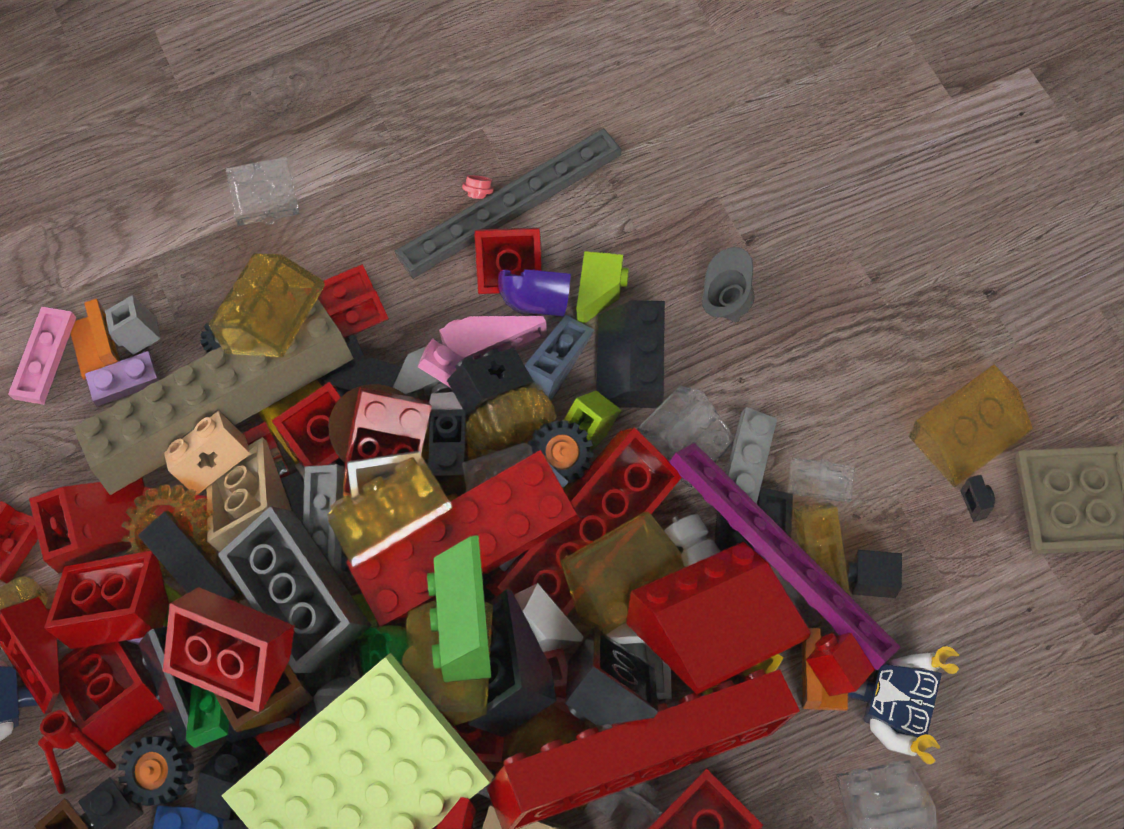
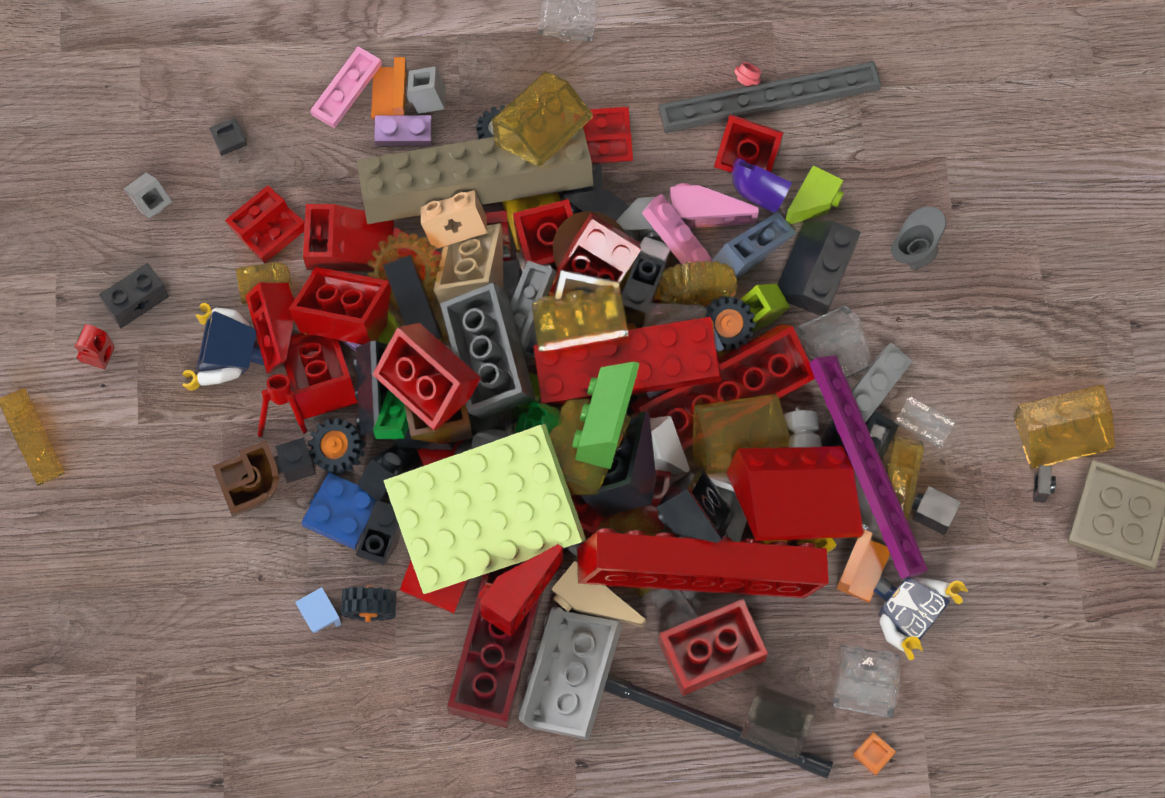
camera: 15 degrees right, 5 degrees up
(487, 377) = (693, 243): black brick -> none
(840, 663) = (875, 563): red brick -> none

